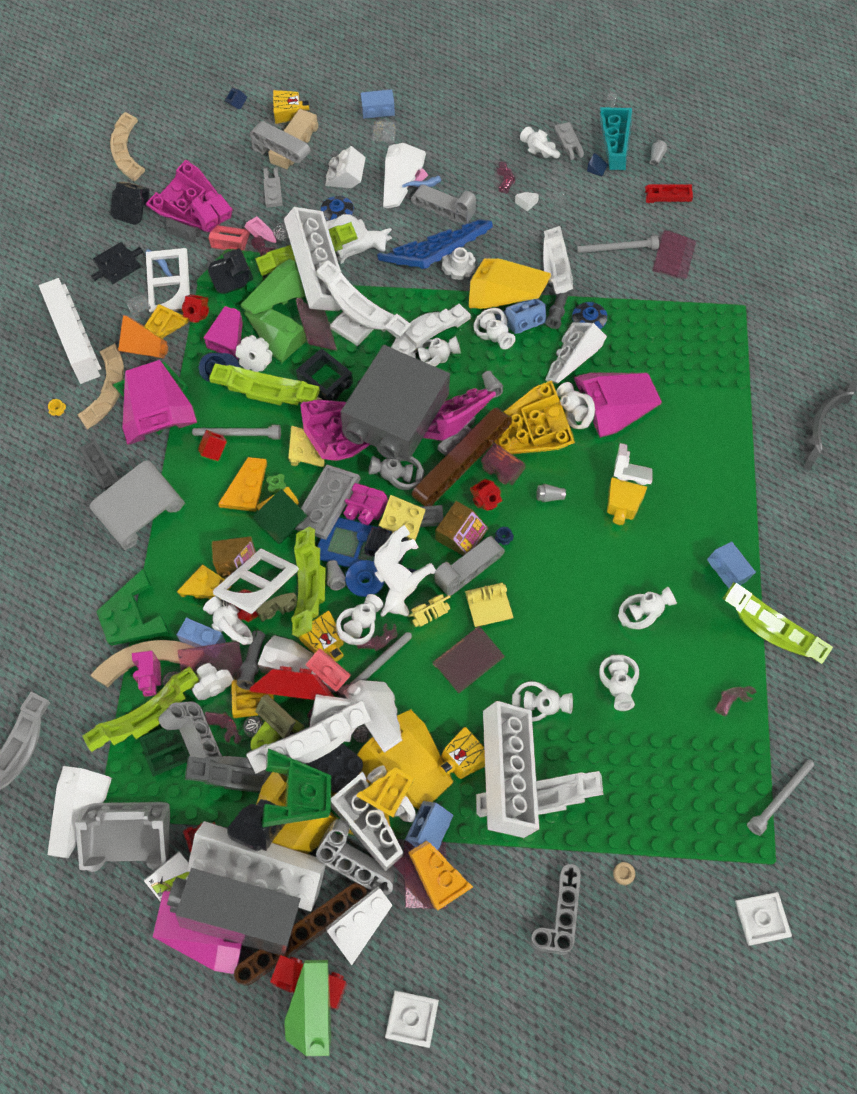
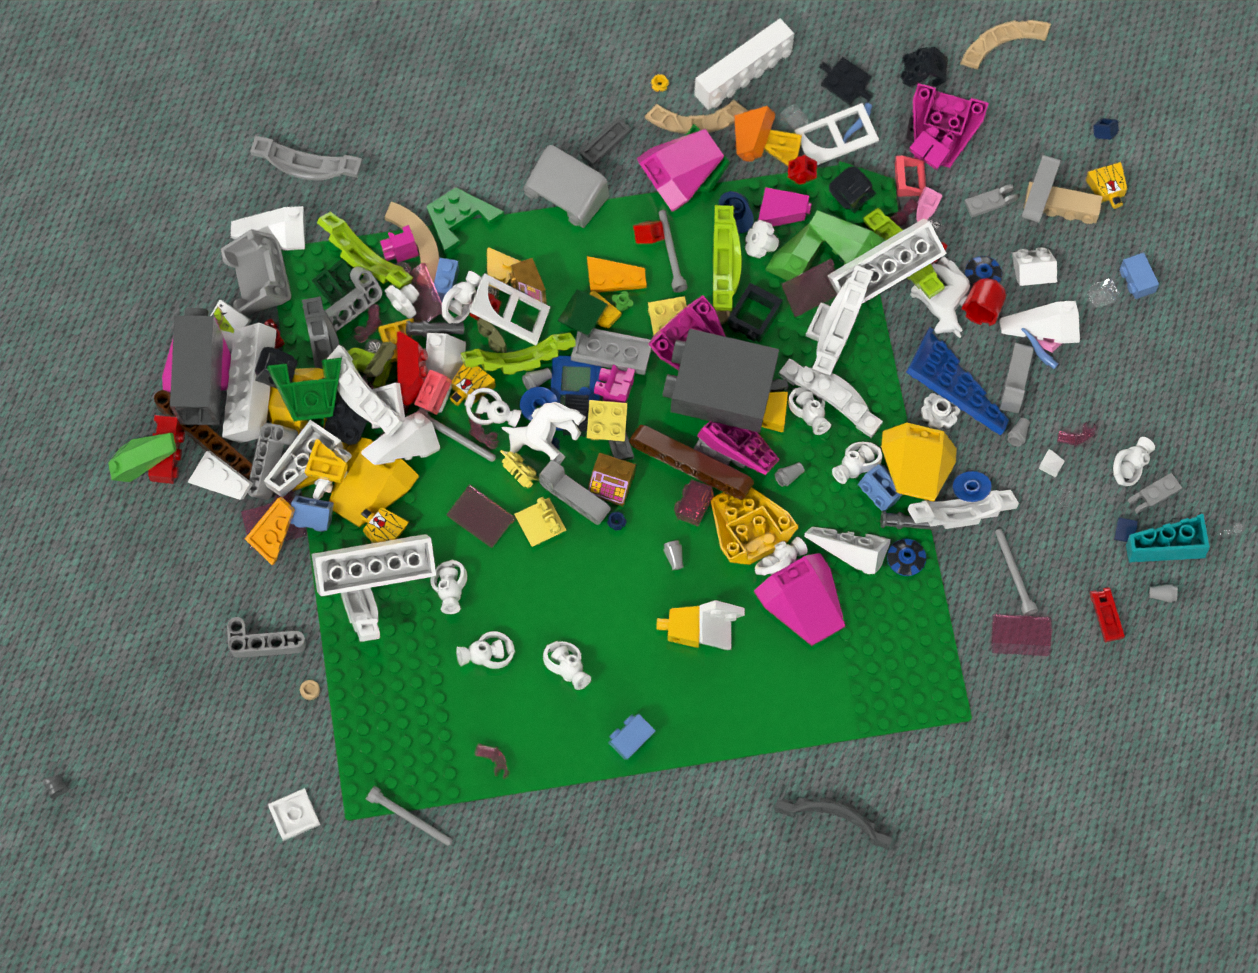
camera: 75 degrees right, 5 degrees up
(369, 206) = (984, 301): none -> red cylinder
(392, 470) = (661, 406): light grey piece -> none
(412, 1019) = (154, 540): white tile -> none
(486, 494) = (653, 493): red brick -> none
(493, 214) = (1019, 432): none -> light grey cone
(536, 254) = (972, 486): none -> blue dish
(774, 626) = (578, 786): lime piece -> none

